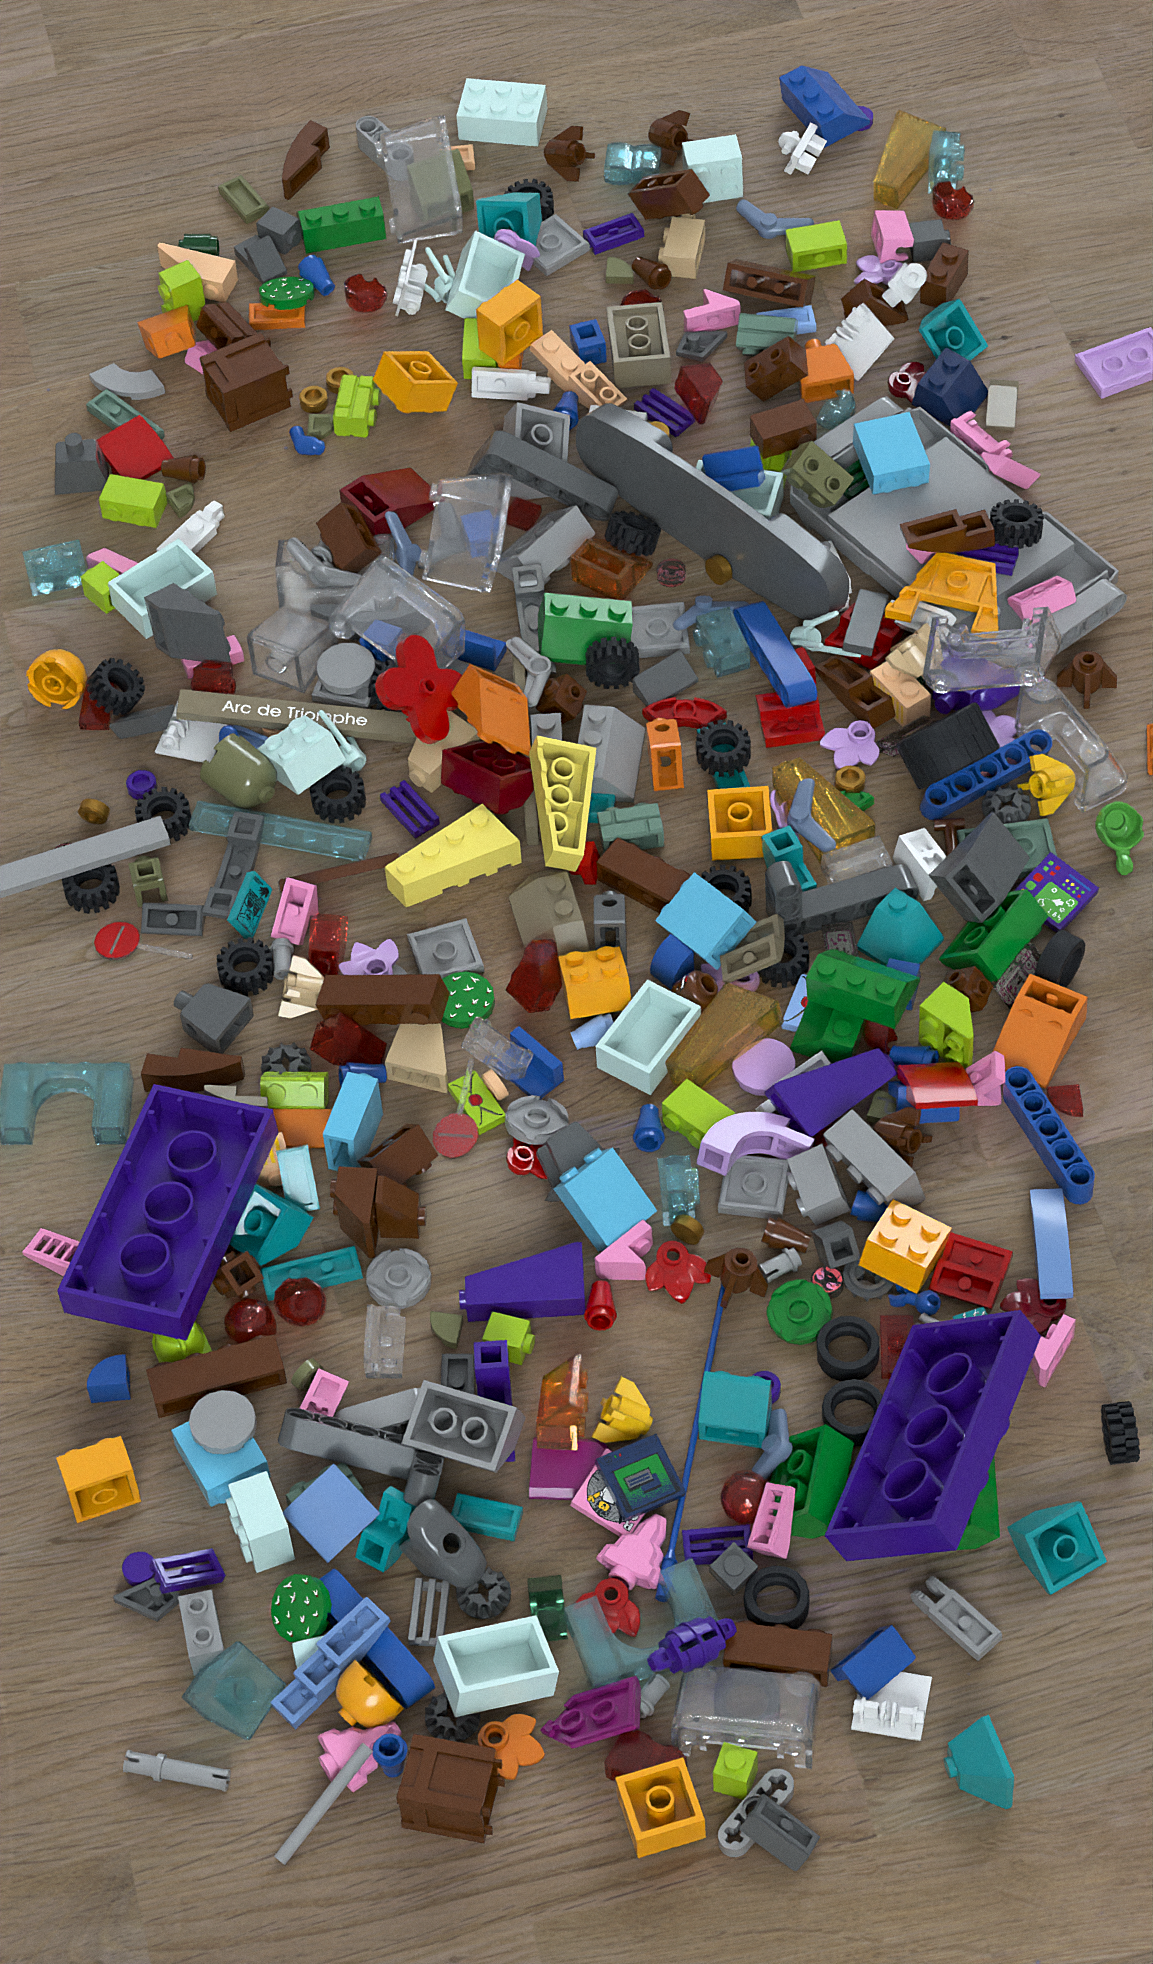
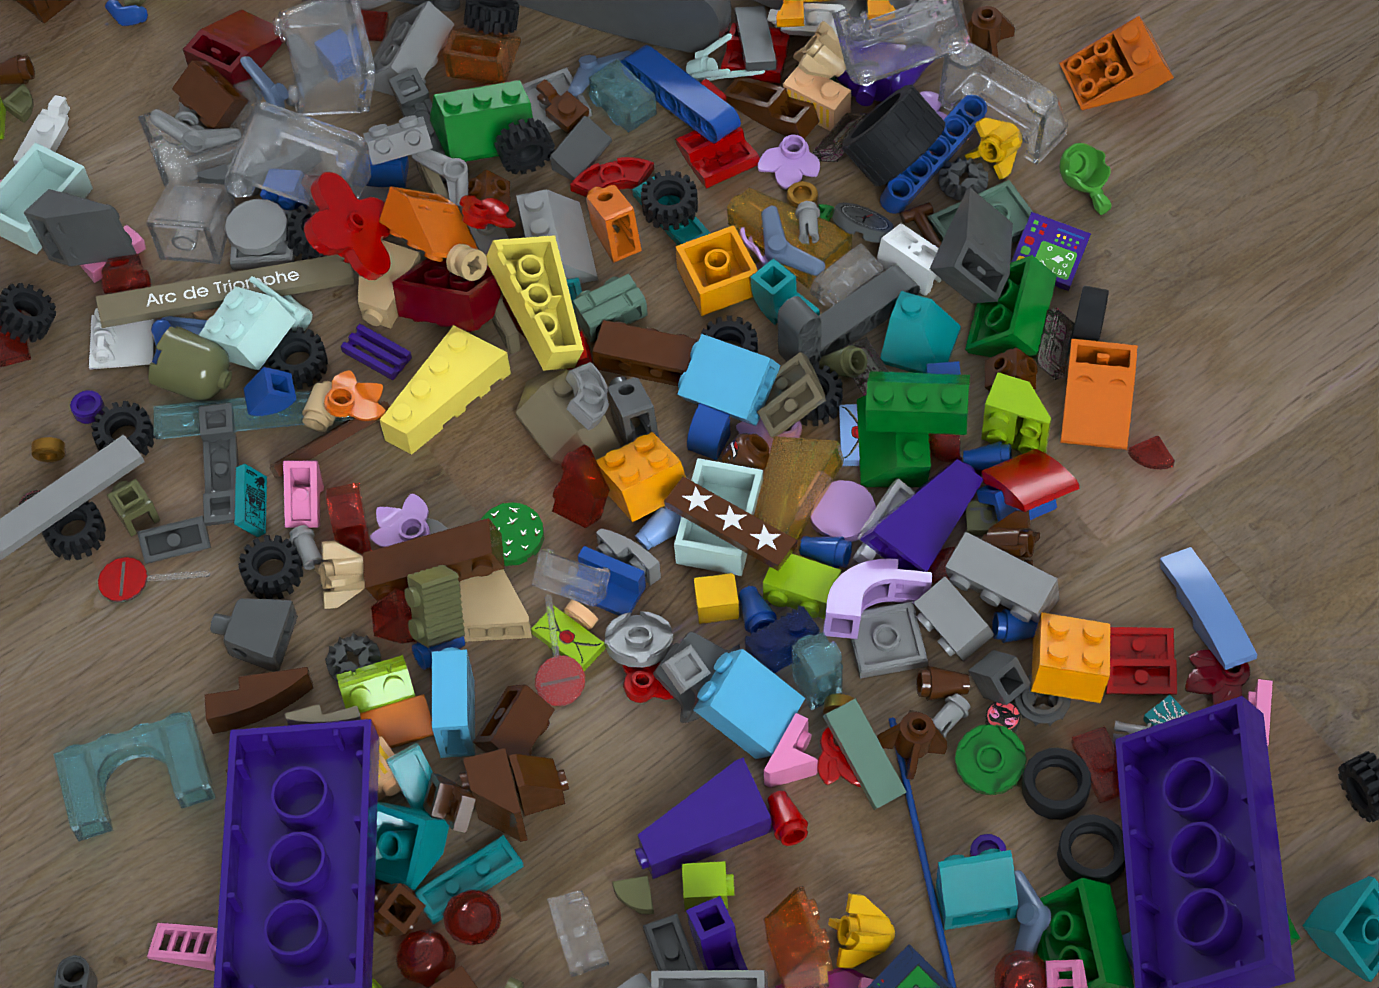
camera: 20 degrees left, 5 degrees up
(143, 722) = (66, 341): dark grey slope -> none
(300, 816) = (269, 392): none -> blue brick
(315, 1201) = (449, 802): none -> reddish brown slope
(341, 841) = (314, 412): none -> tan brick
(366, 1036) = (435, 606): none -> olive brick
(369, 841) = (354, 398): none -> orange plate
(398, 1278) = (562, 855): light grey tile -> none
(446, 949) = (471, 488): light grey tile -> none
(497, 625) = (397, 140): none -> light grey plate
(511, 742) = (466, 262): none -> tan wheel
(542, 710) = (481, 213): none -> red plate
(557, 1044) = (629, 552): none -> light grey slope
(558, 1151) = (685, 669): none -> light grey tile
(575, 898) = (590, 395): none -> light grey tile
(617, 1106) = (716, 598): none -> yellow panel
(643, 1155) = (774, 643): none -> clear blue brick
(651, 1042) = (730, 523): none -> reddish brown tile
(662, 639) = (563, 110): none -> reddish brown plate
(671, 572) = (541, 42): clear smoke tile -> none
(689, 1272) = (864, 754): none -> sand green tile
(718, 569) = (588, 26): pearl gold tile -> none
(734, 1095) = (827, 550): none -> blue cone
(821, 936) = (846, 362): none -> olive cone
(839, 795) = (808, 224): none -> light grey pin
(890, 815) = (861, 219): none -> dark grey tile
(924, 1302) = (1109, 709): blue arm -> none
(987, 1077) = (1074, 453): bright pink slope -> none
(1053, 1147) = (1158, 510): blue beam -> none

